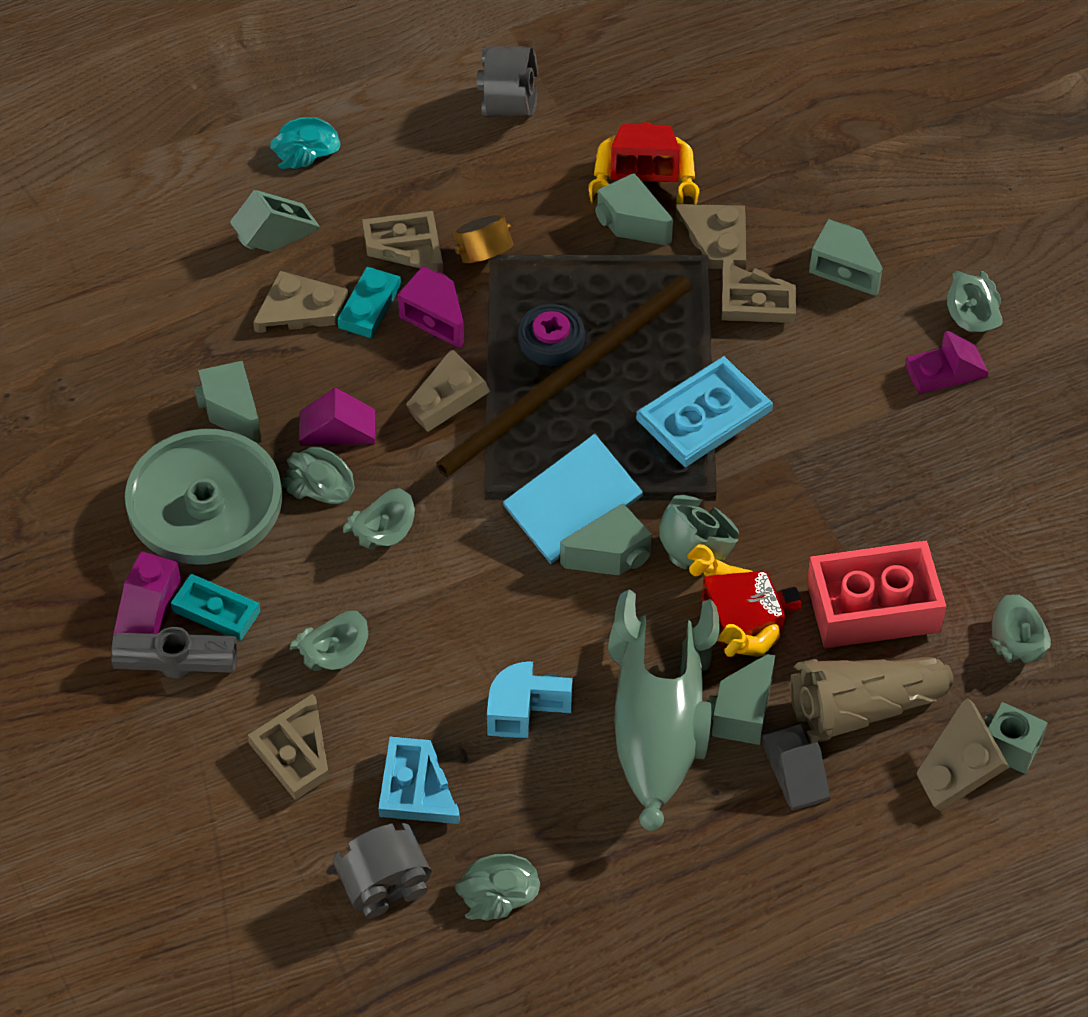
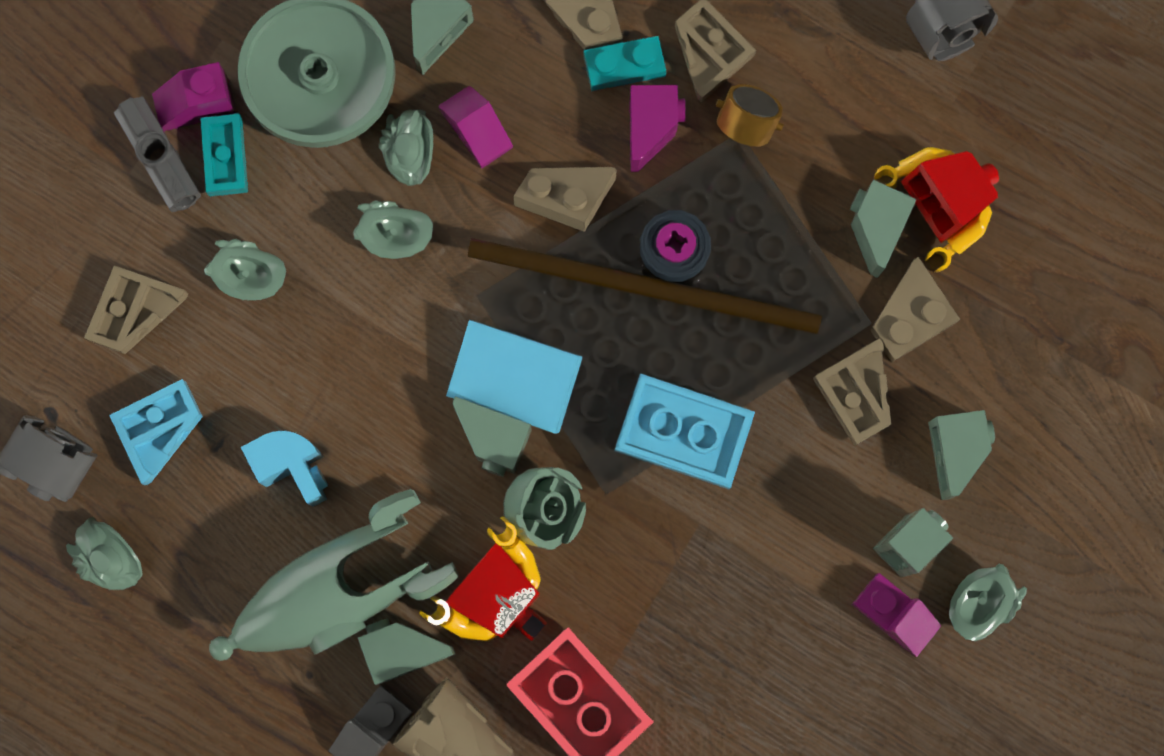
camera: 55 degrees right, 25 degrees up
(899, 314) = (913, 542): none -> sand green brick

